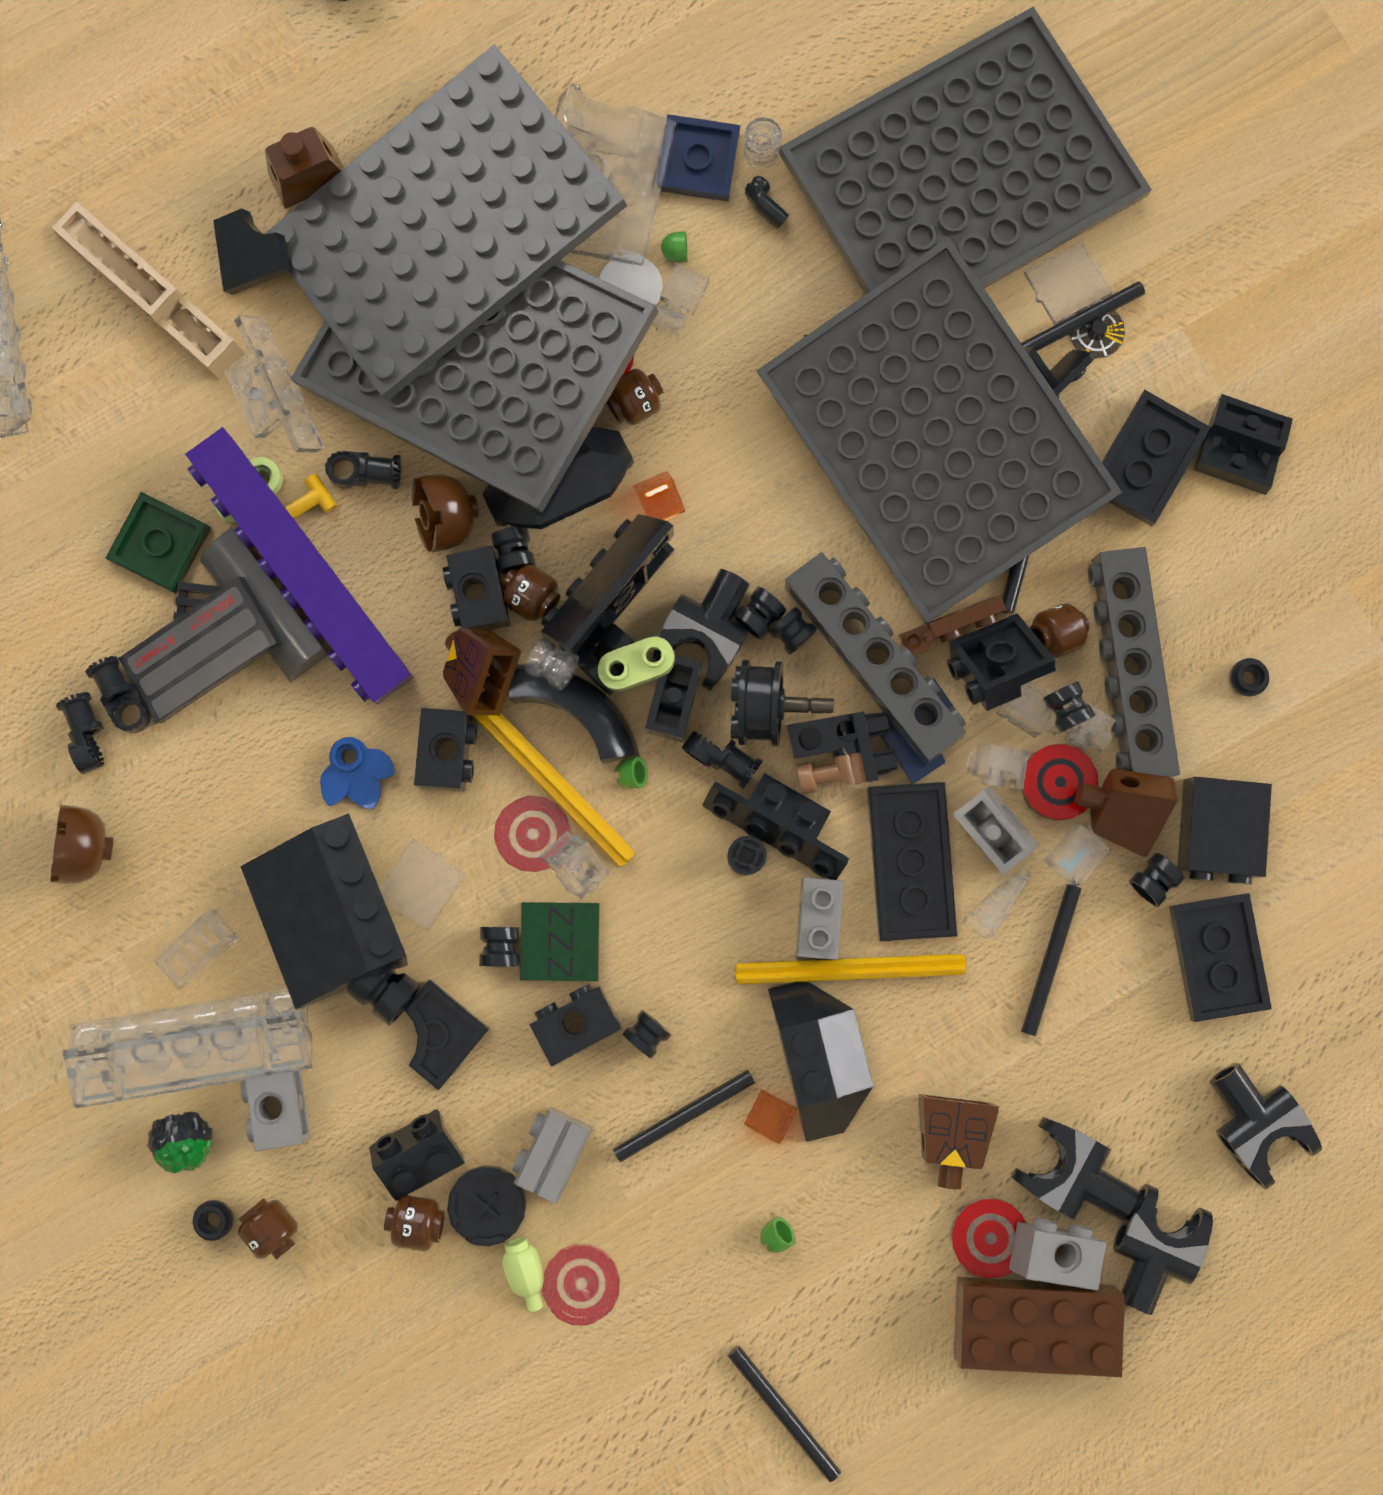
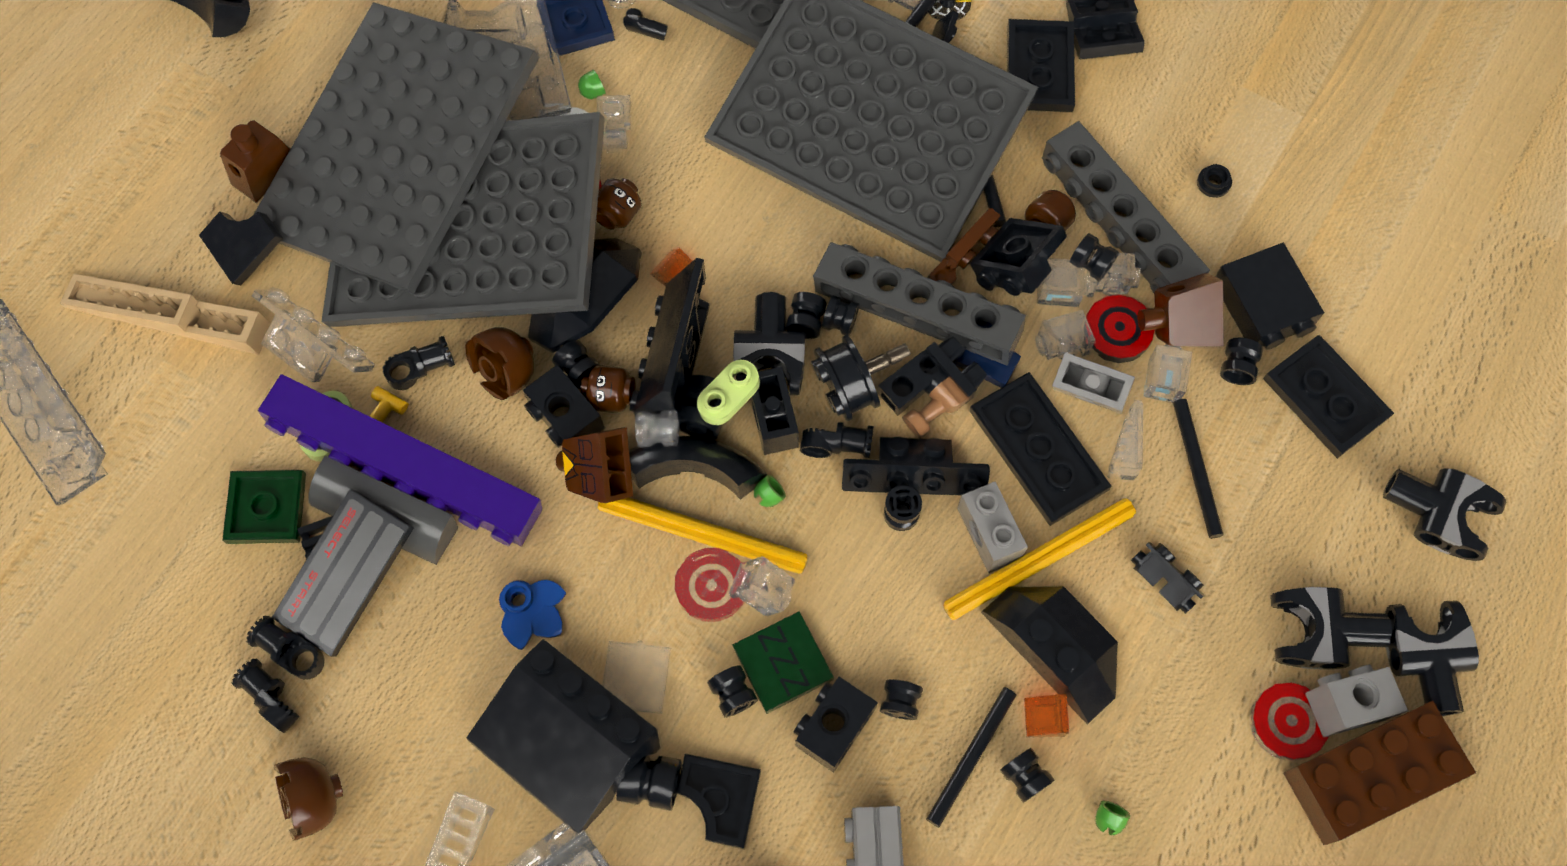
camera: 25 degrees left, 15 degrees down
(434, 729) = (605, 571): black brick -> none
(722, 1160) = (1027, 775): none -> black wheel
(955, 1135) = (1208, 647): reddish brown torso -> none
(965, 1064) = (1180, 585): none -> black hinge

